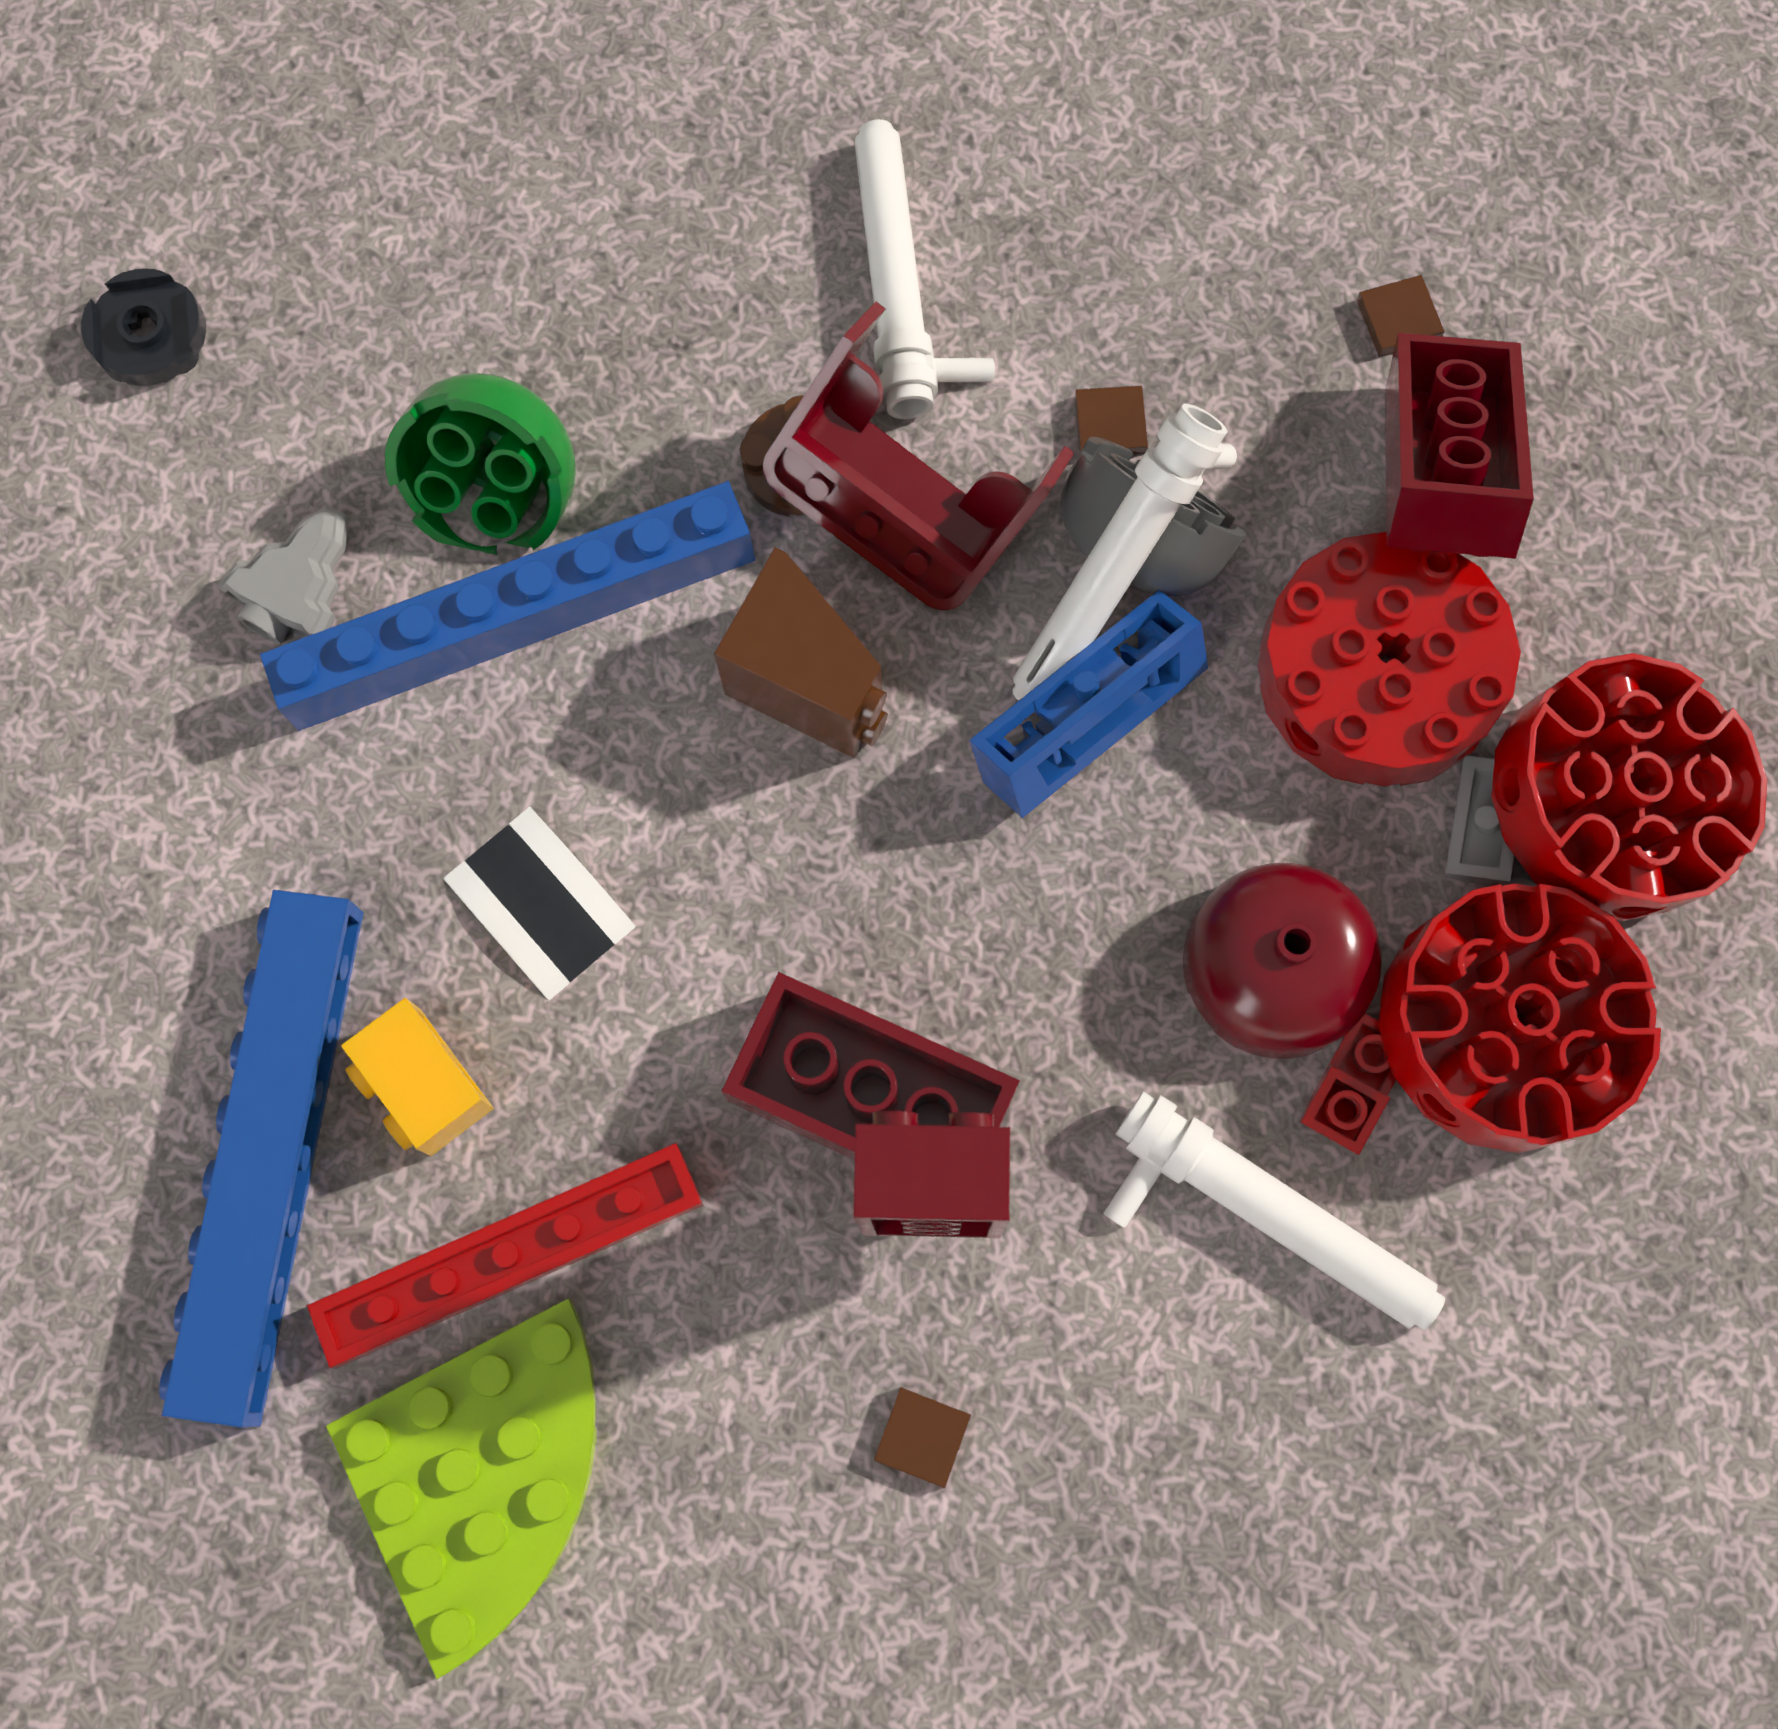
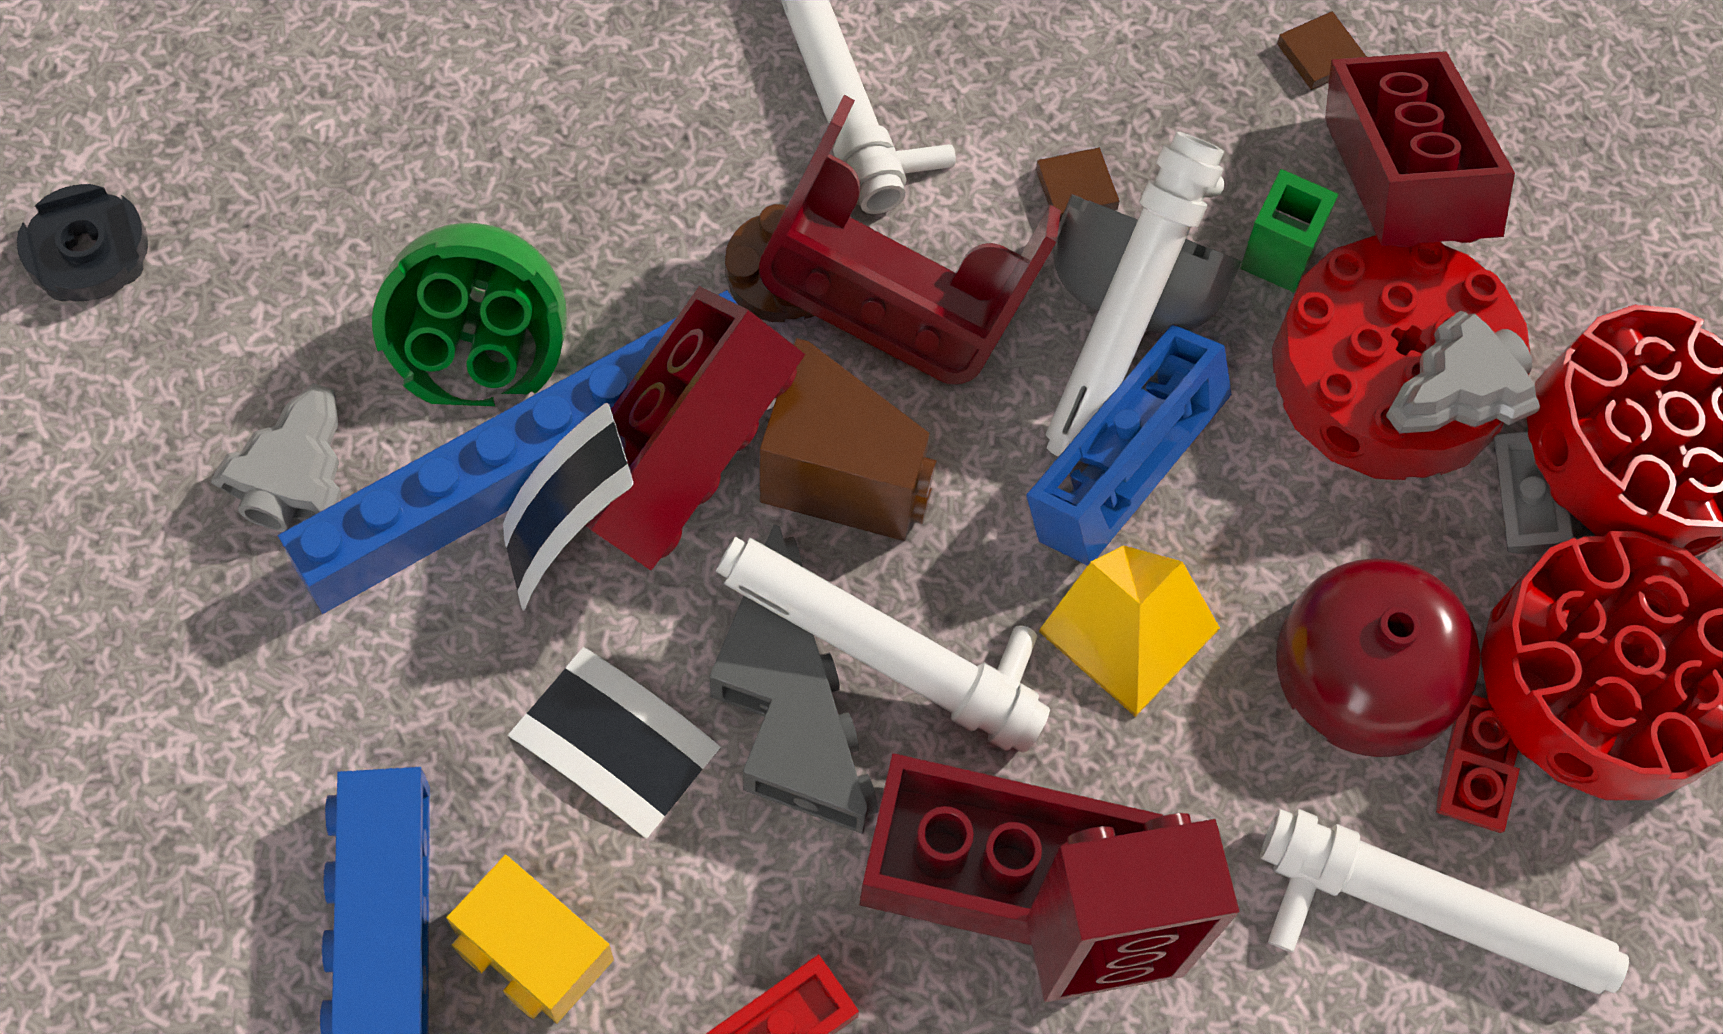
camera: 20 degrees left, 10 degrees down
(529, 662) = (563, 495): none -> sticker
(644, 617) = (689, 417): none -> dark red brick
(699, 864) = (803, 742): none -> dark grey slope
(876, 924) = (972, 693): none -> white cylinder
(1050, 881) = (1131, 623): none -> yellow slope
(1299, 511) = (1282, 245): none -> green brick
(1433, 703) = (1467, 379): none -> light grey rock

